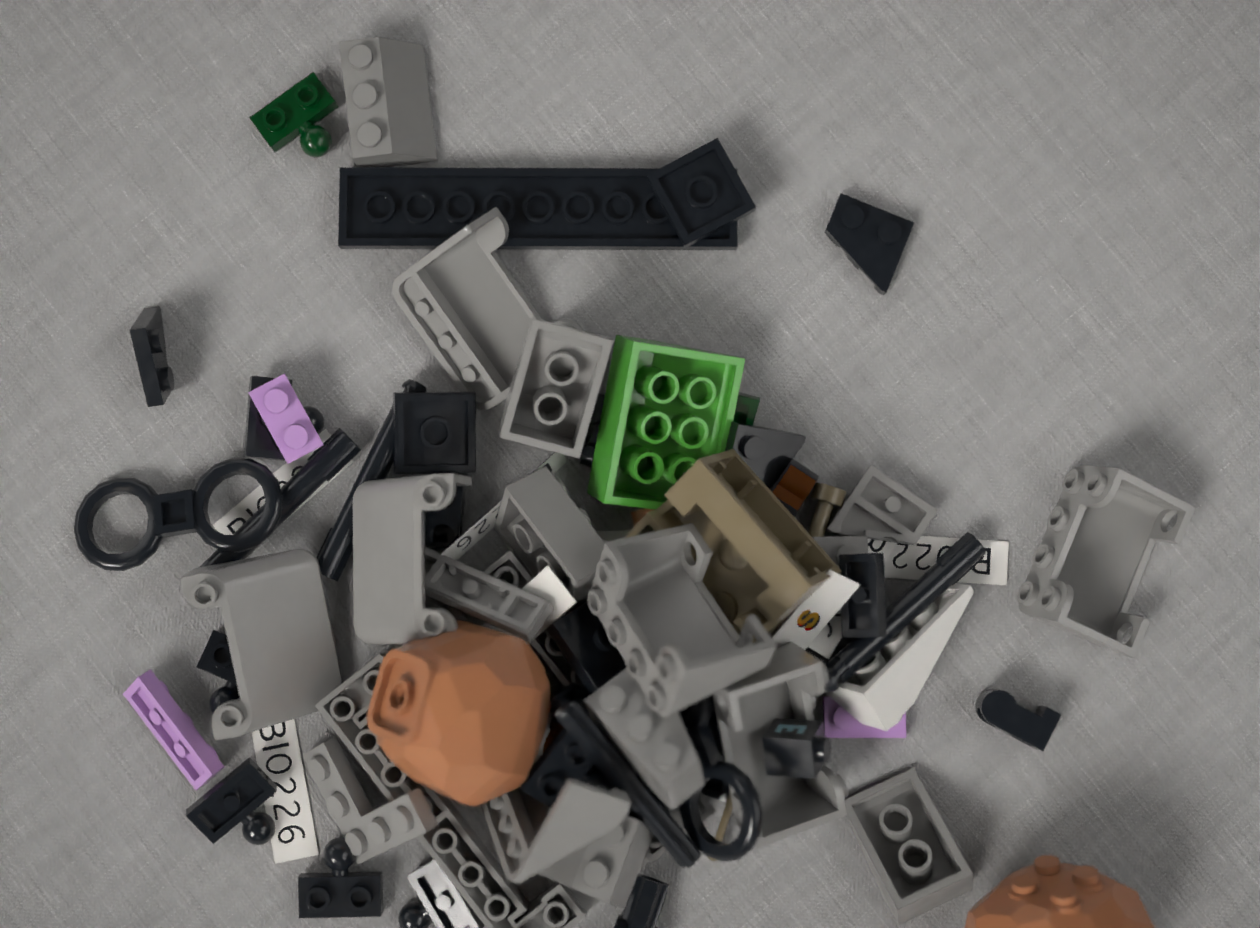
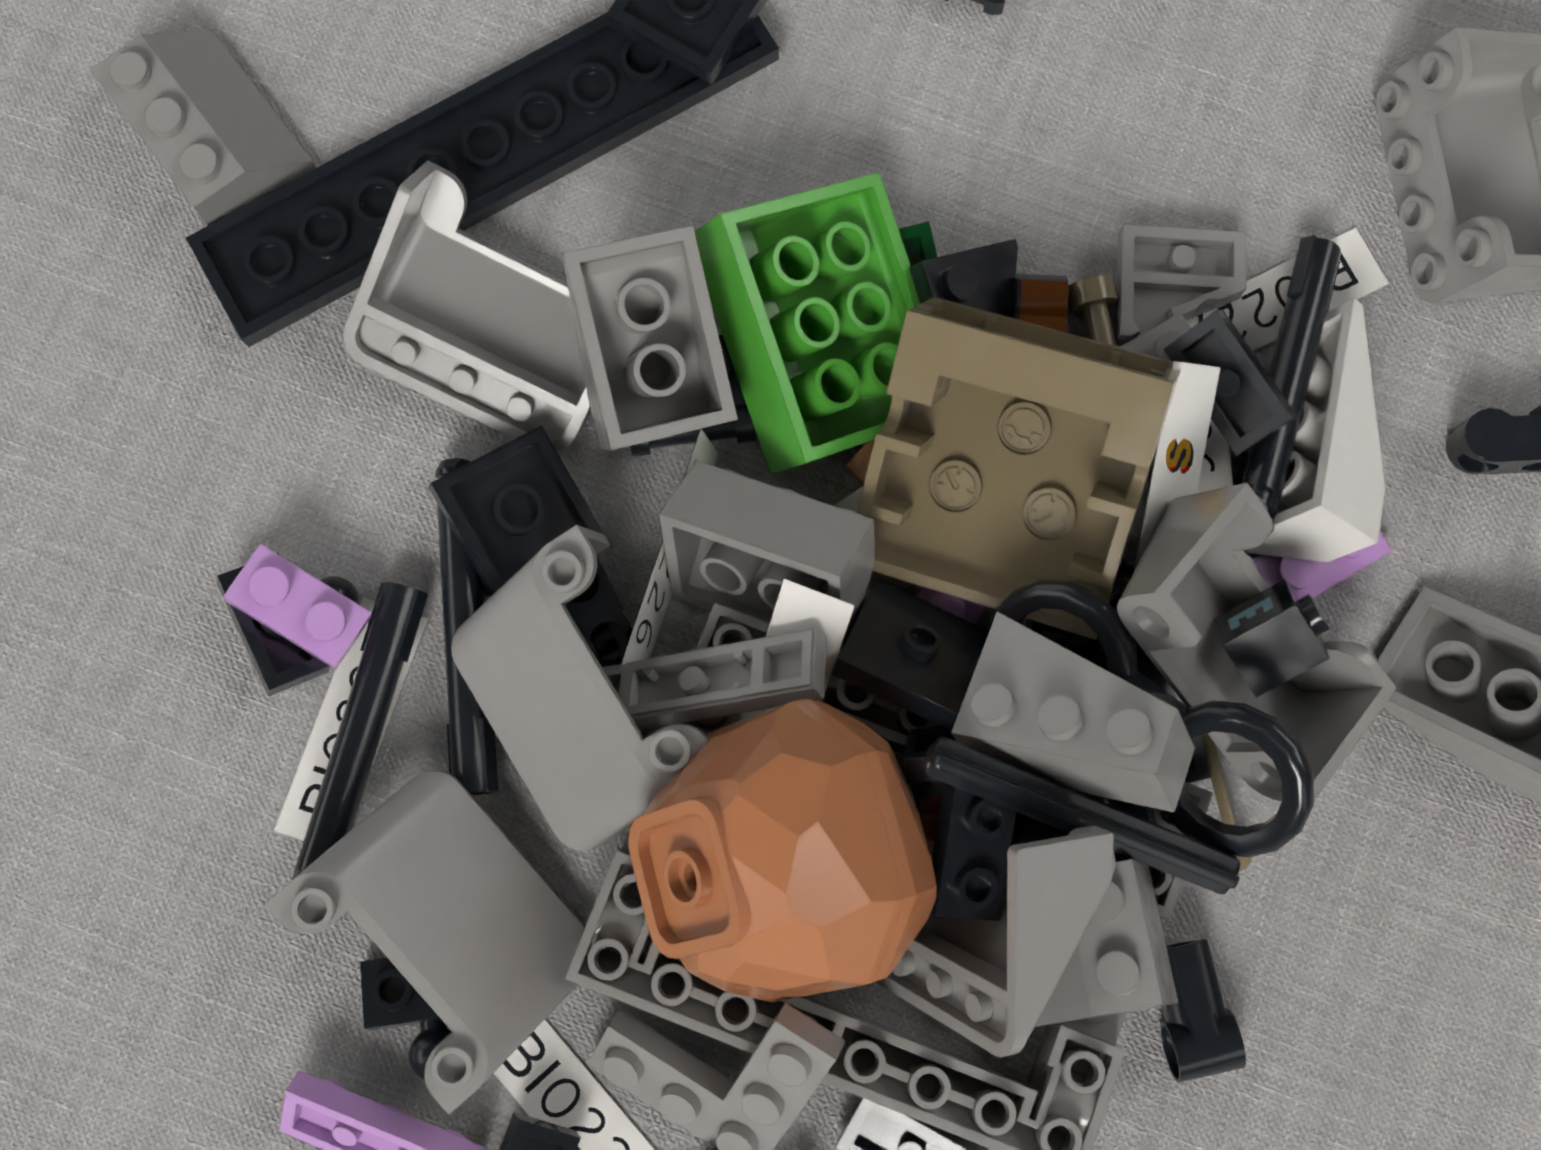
camera: 30 degrees left, 5 degrees down
(151, 356) = (60, 632): black wing -> none
(178, 514) = (217, 829): black bar -> none
(296, 114) = (90, 205): dark green plate -> none
(668, 621) = (1005, 565): light grey windscreen -> none

